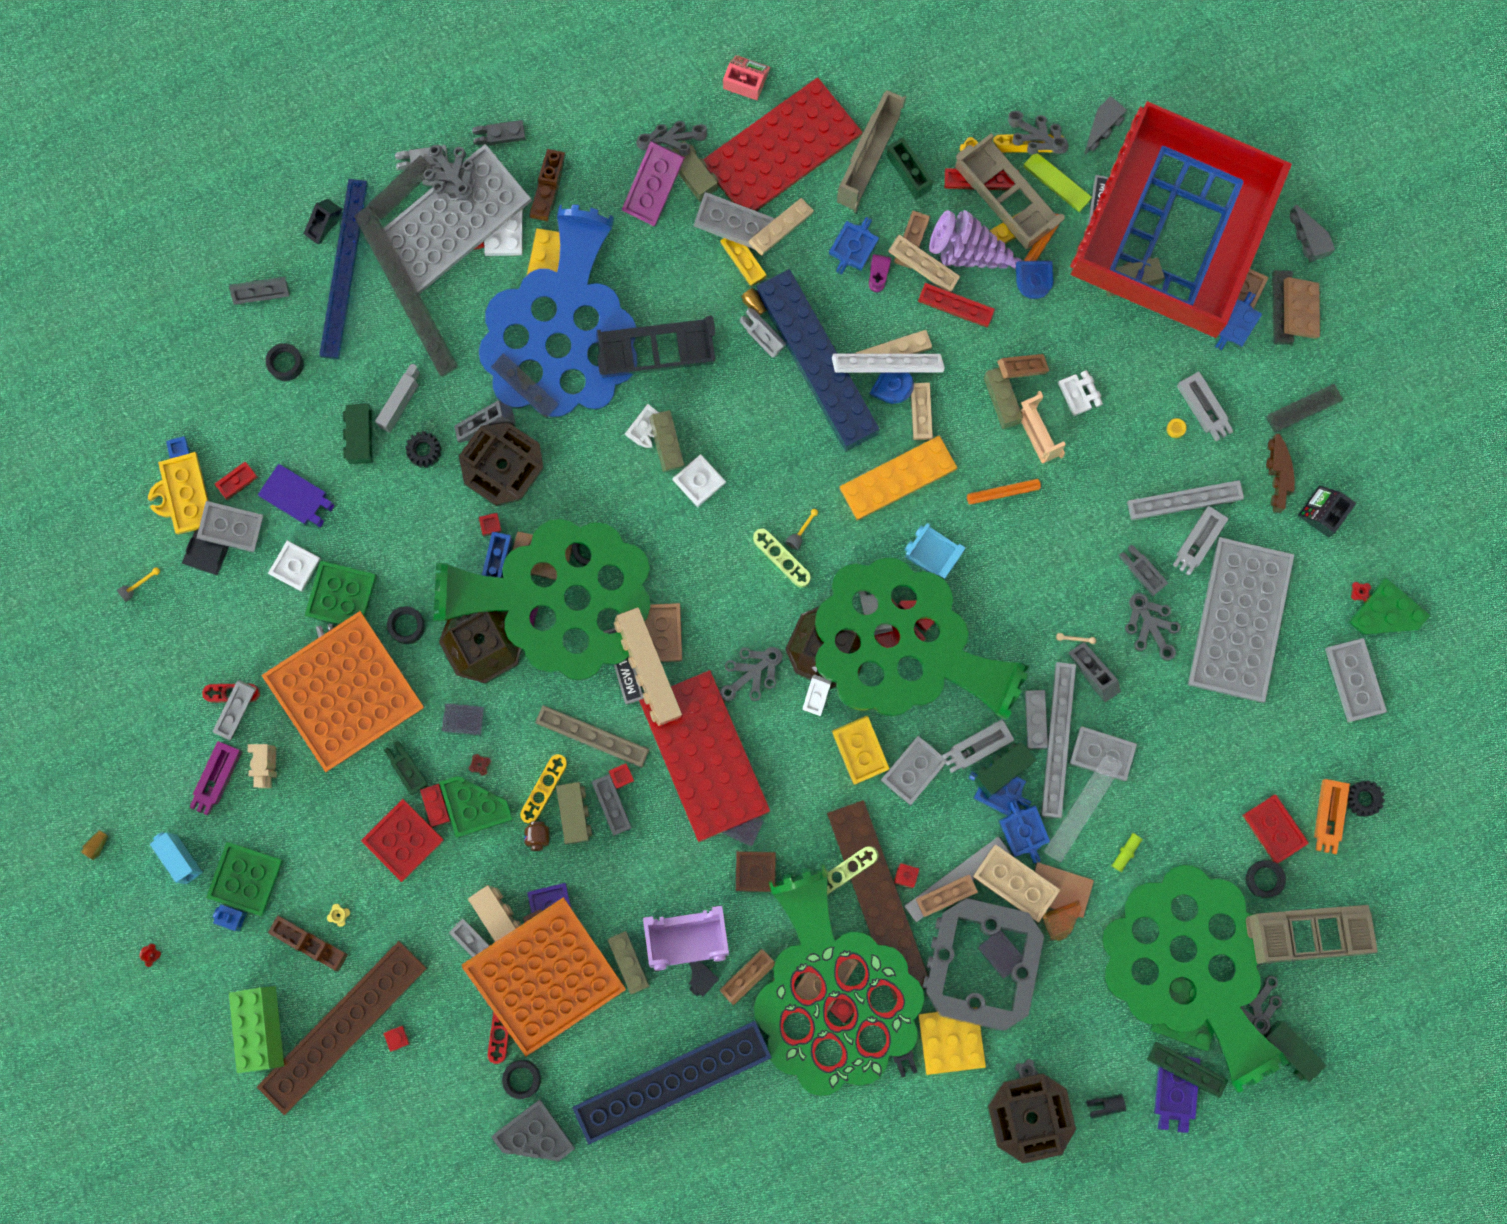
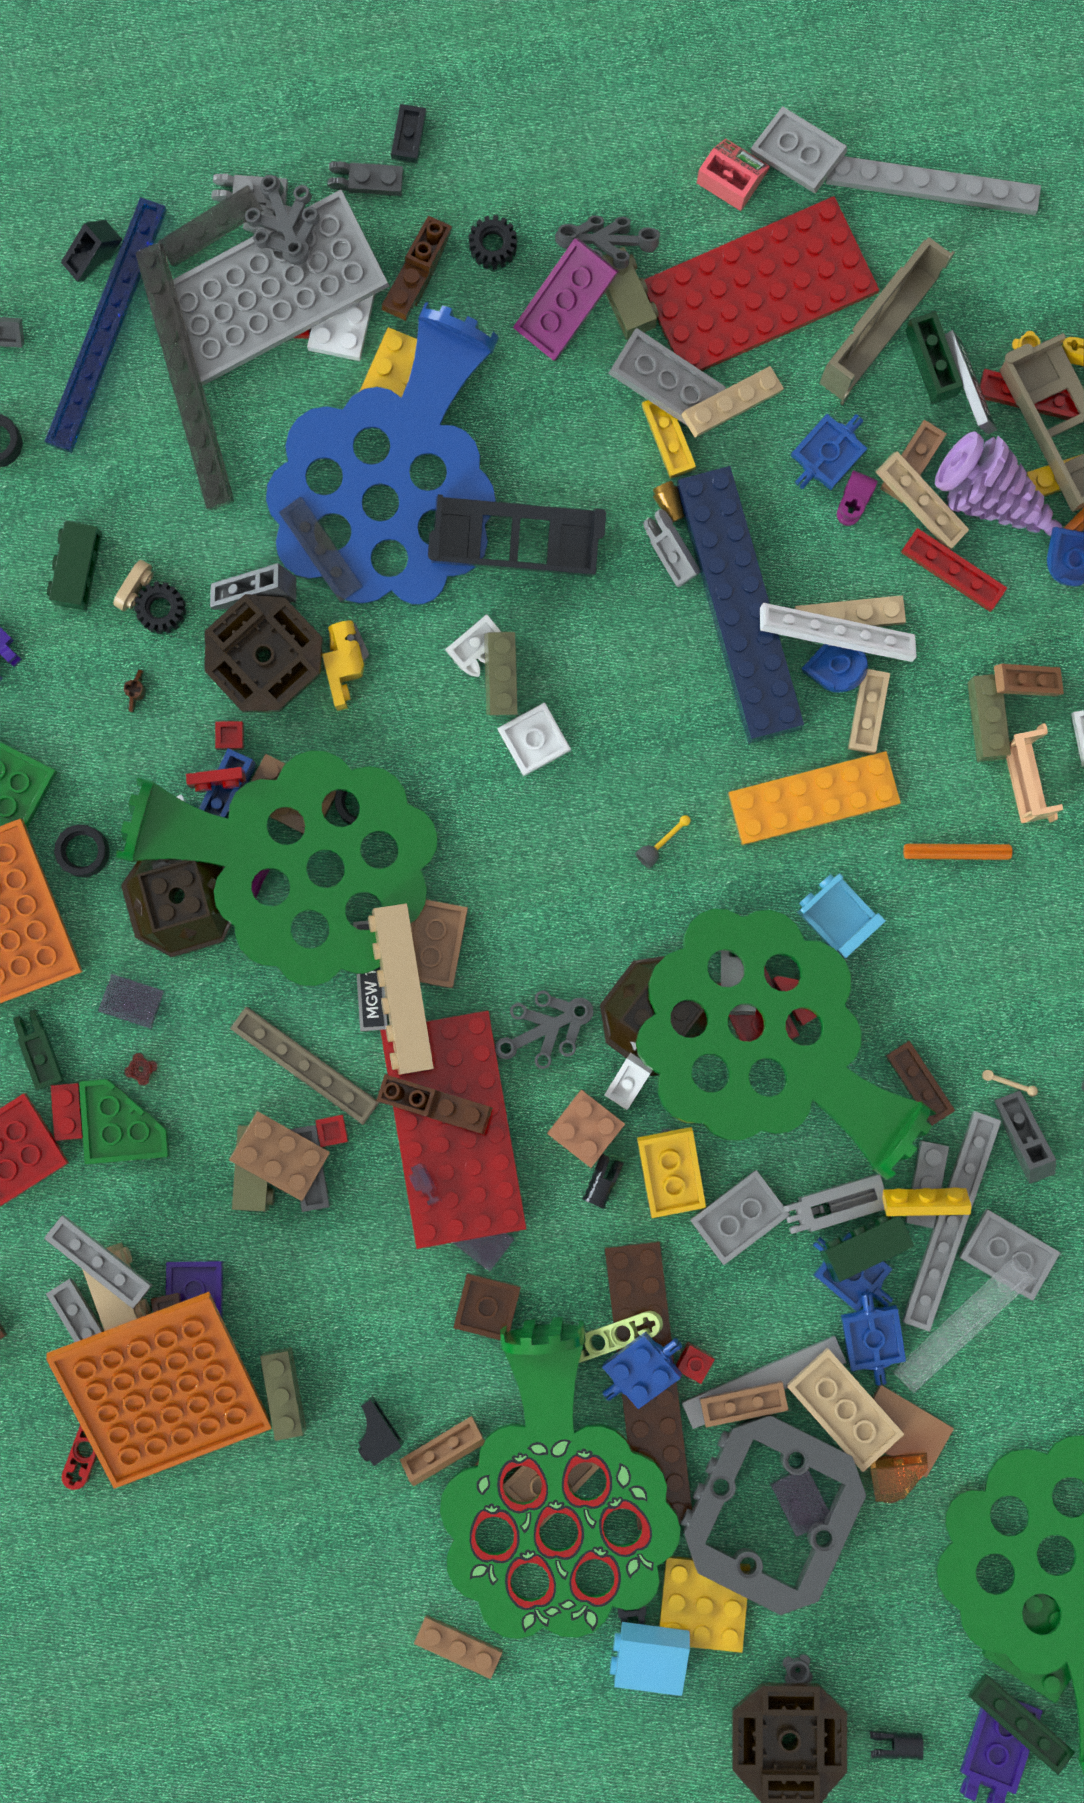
camera: 15 degrees right, 5 degrees up
(398, 399) = (141, 529): light grey hinge -> none
(404, 431) = (137, 578): none -> tan plate
(418, 508) = (135, 690): none -> reddish brown piece
(482, 896) = (98, 1261): none -> light grey plate
(496, 550) = (226, 777): none -> red plate
(506, 1079) = (86, 1535): black tyre -> none
(521, 97) = (408, 133): none -> black plate
(534, 1135) = (101, 1599): dark grey plate -> none
(537, 836) = (196, 1188): reddish brown head -> none
(546, 790) = (224, 1126): yellow beam -> none
(557, 456) = (345, 660): none -> yellow plate
(589, 799) = (279, 1156): none -> medium nougat plate
(598, 167) = (489, 227): none -> black tyre
(671, 1082) = (304, 1573): dark blue brick -> none
(686, 938) = (368, 1382): lavender windscreen -> none
(687, 740) = (434, 1104): none -> reddish brown slope
(693, 792) = (423, 1182): none -> clear purple plate
(783, 556) = (622, 876): yellowish green beam -> none
(786, 52) = (798, 149): none -> light grey plate
(789, 1110) = (458, 1646): none -> medium nougat plate
(795, 734) = (585, 1128): none -> nougat brick
(814, 772) = (600, 1188): none -> black hinge
(842, 1010) = (562, 1527): red plate -> none
(871, 887) = (642, 1370): none -> blue plate
(882, 55) = (936, 185): none -> light grey plate
(923, 1084) = (650, 1658): none -> medium azure brick
(937, 179) = (970, 383): none -> tile
(1014, 650) = (919, 1081): none -> reddish brown plate
(1037, 729) = (926, 1202): none -> yellow plate
(1127, 852) = (1009, 1401): lime pin -> none

